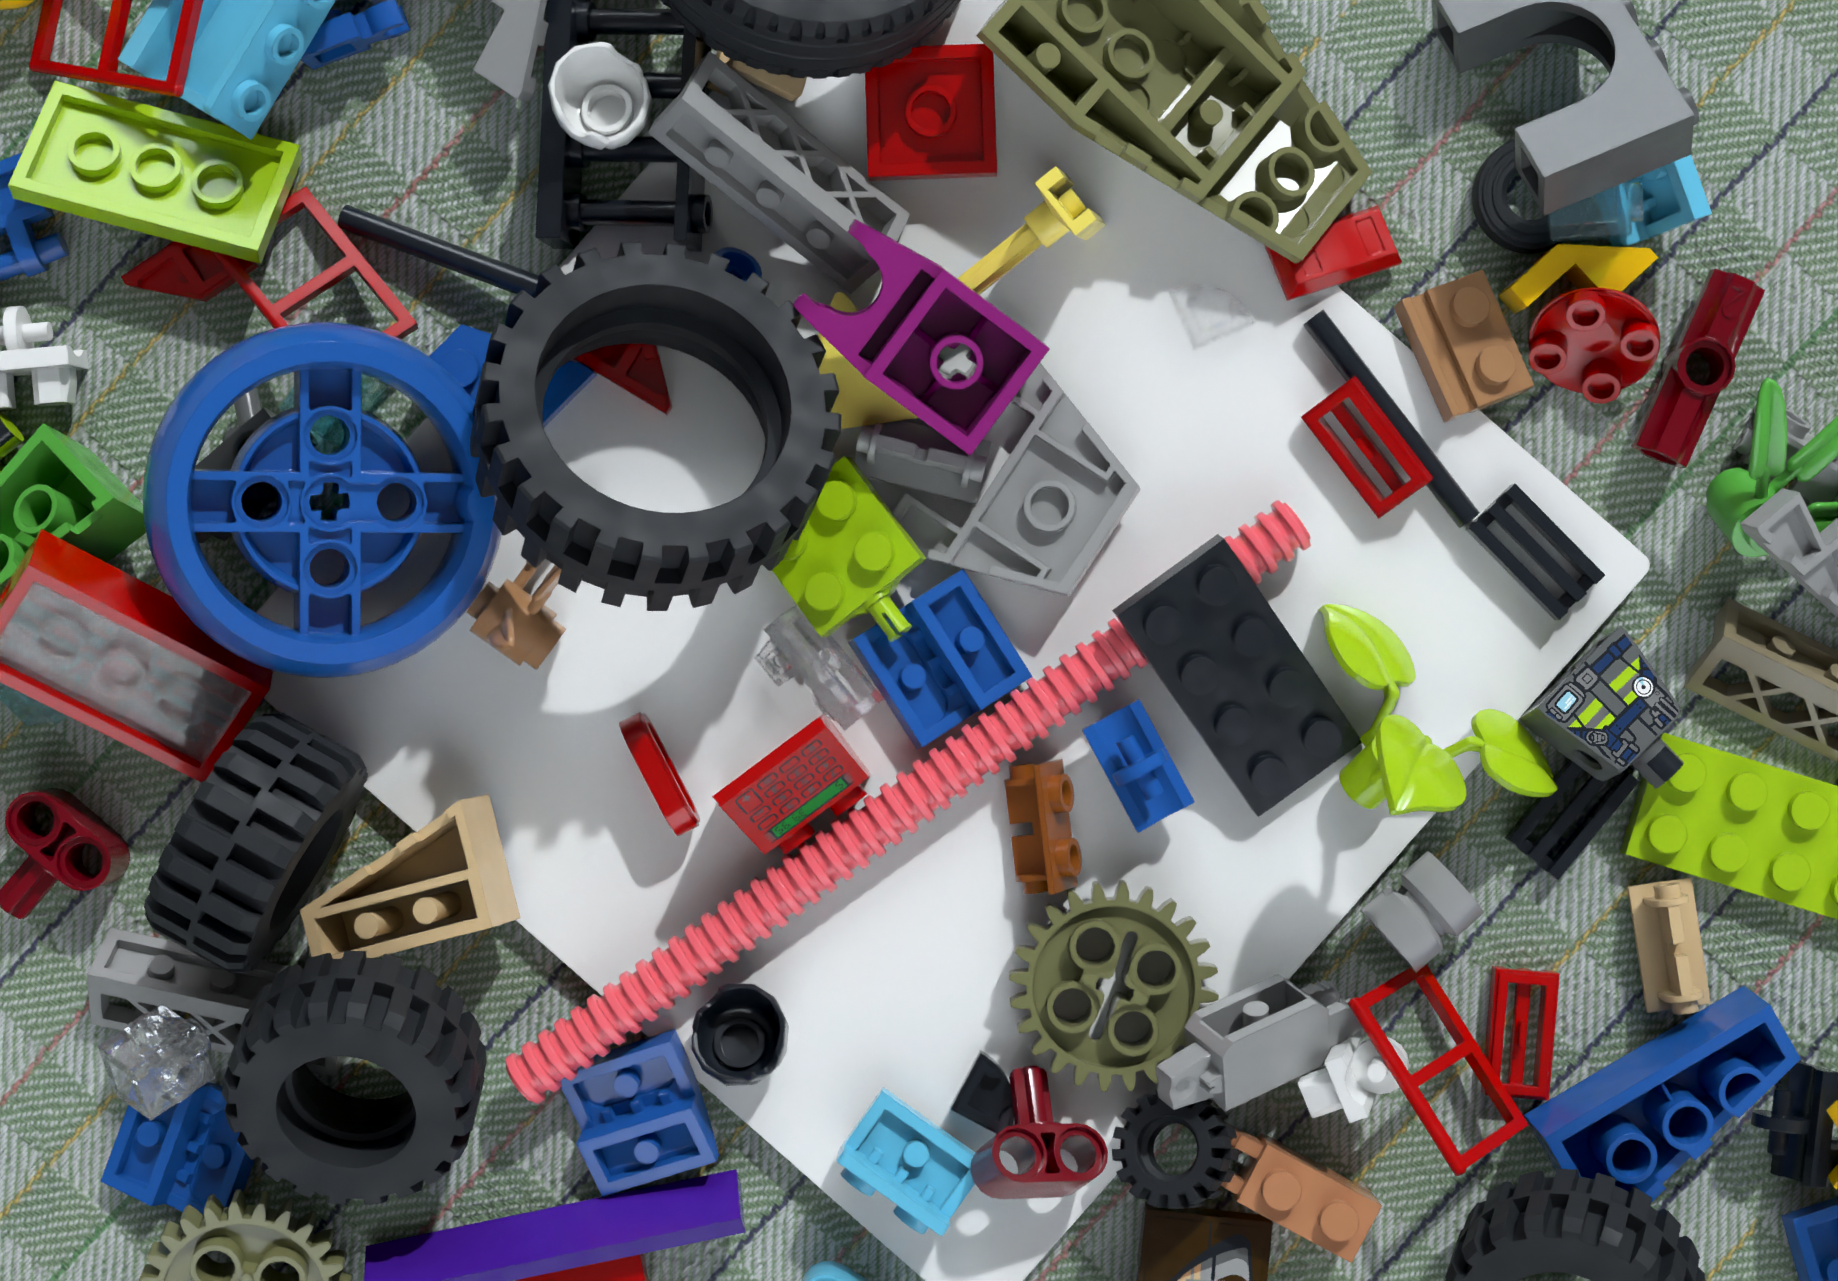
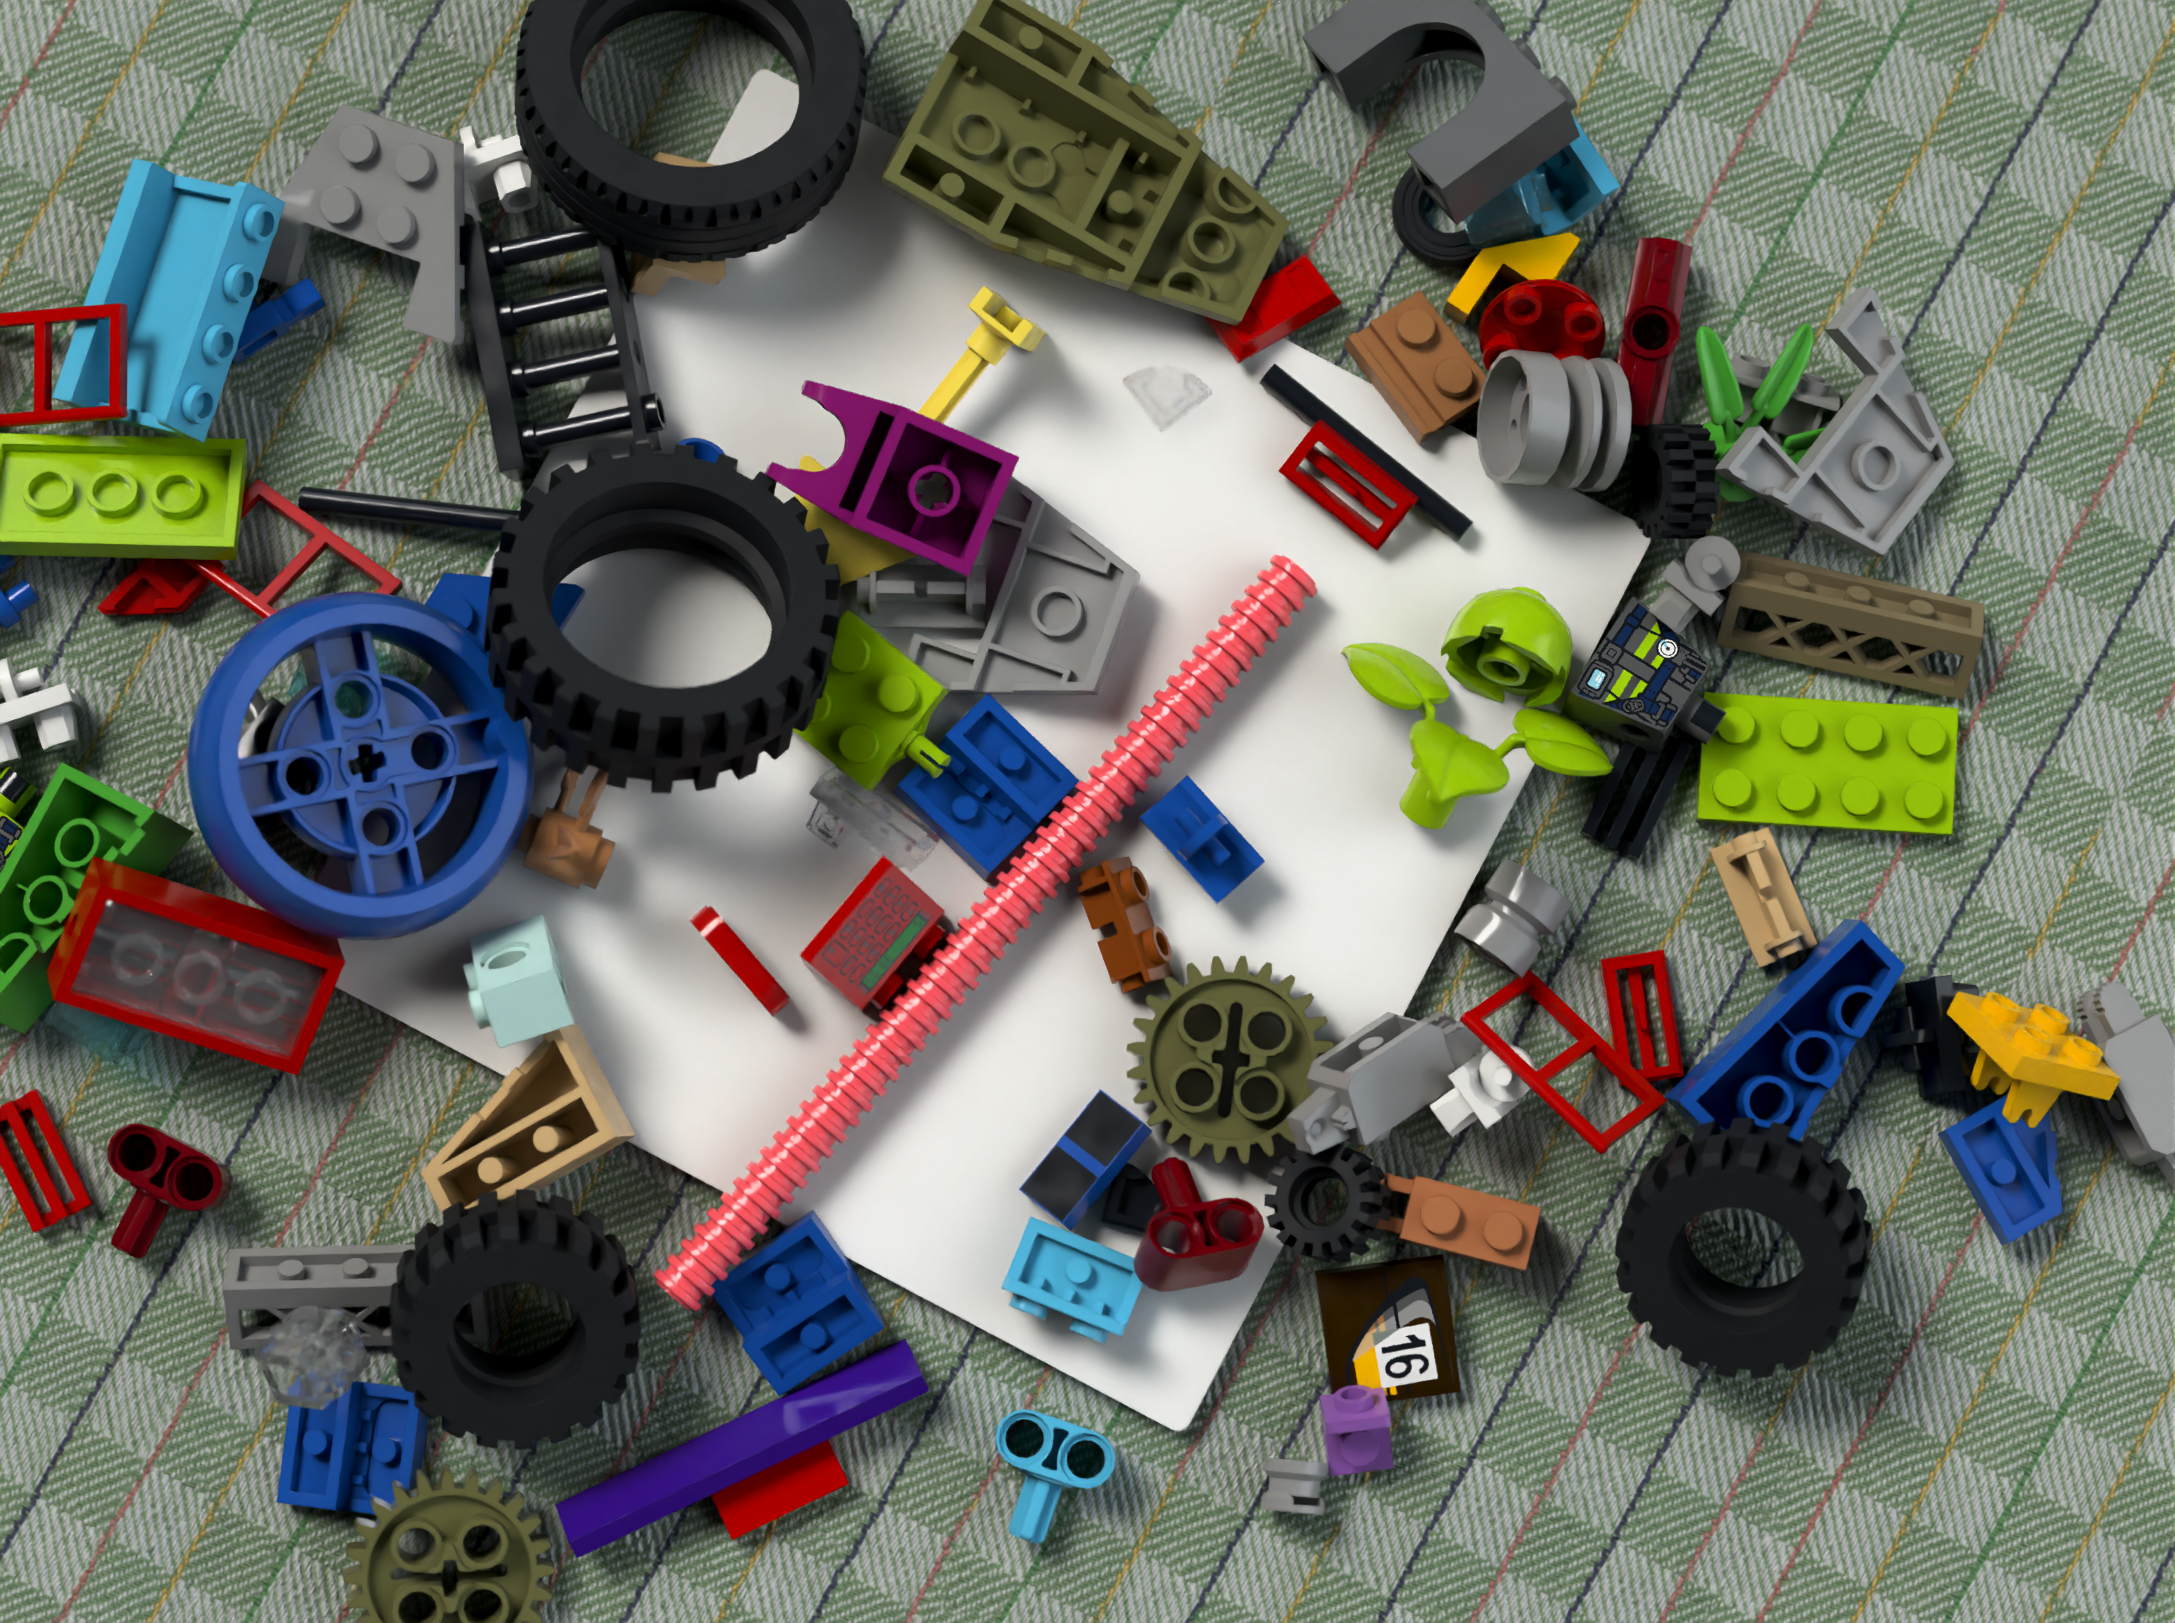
camera: 15 degrees left, 5 degrees down
(255, 842) = (367, 1110): black tyre -> none
(435, 749) = (517, 982): none -> light aqua brick
(599, 96) = (533, 322): white hair -> none
(634, 369) = (621, 578): red tile -> none
(740, 1035) = (878, 1193): black hair -> none
(772, 182) = (719, 365): light grey fence -> none
(932, 115) = (854, 267): red plate -> none
(949, 1047) = (1085, 1160): none -> black tile
(1237, 675) = (1277, 730): black plate -> none
(1490, 644) = (1510, 645): none -> lime cylinder
(1573, 590) = (1549, 526): black tile -> none
(1588, 434) = (1554, 421): none -> light grey wheel
(1684, 629) = (1697, 581): none -> light grey hips
(1691, 521) = (1674, 481): none -> black tyre

